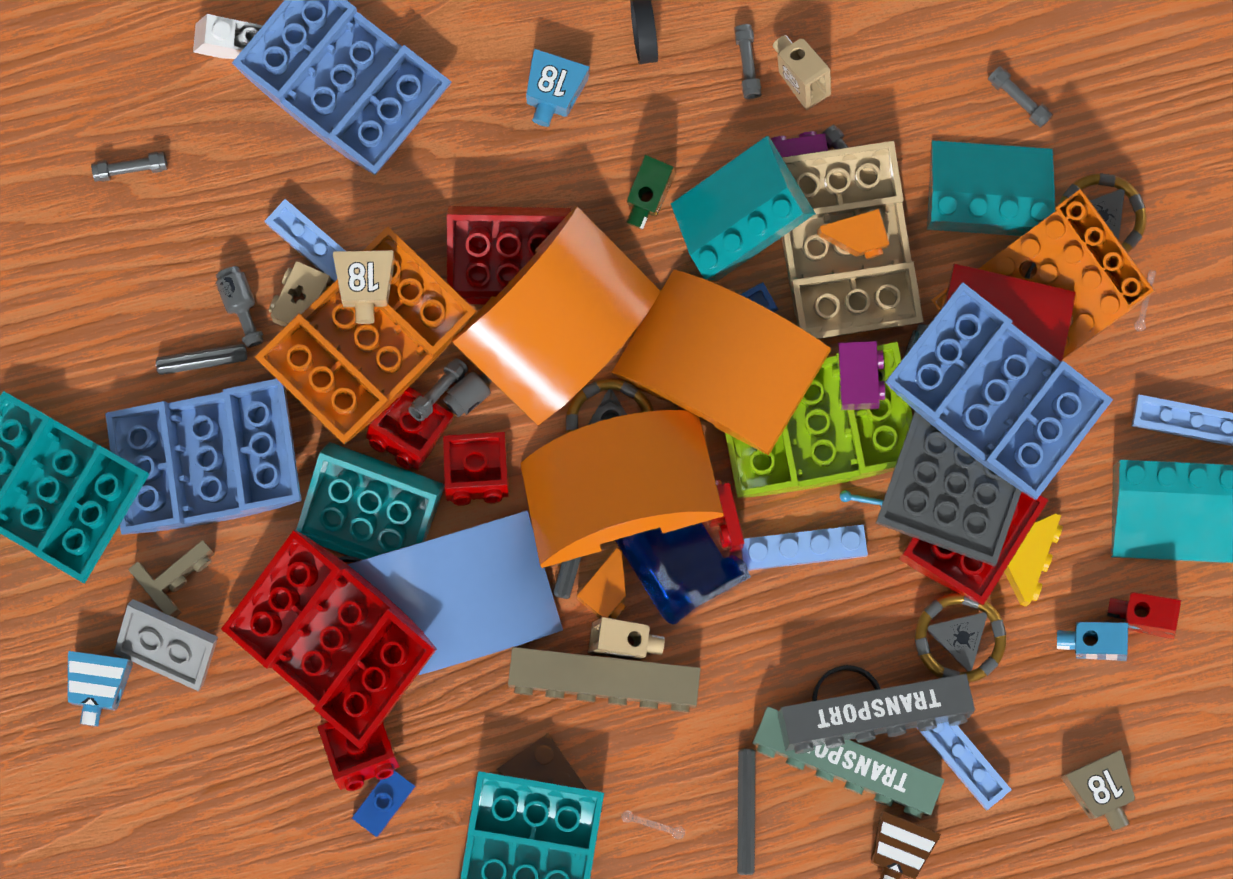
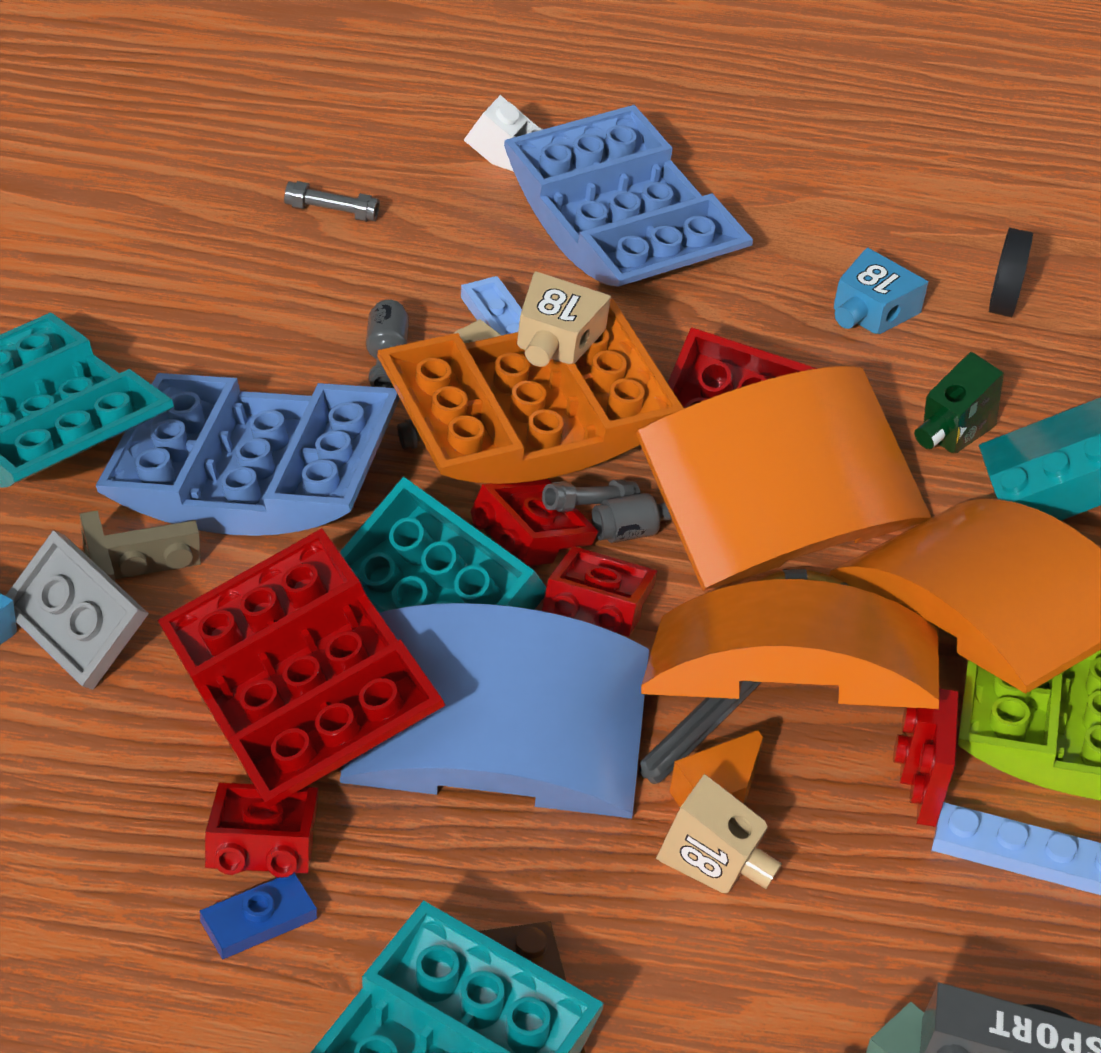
camera: 20 degrees right, 35 degrees down
(201, 359) = (296, 375): dark grey axle -> none
(604, 678) = (670, 885): dark tan brick -> none
(682, 569) = (836, 780): clear blue windscreen -> none

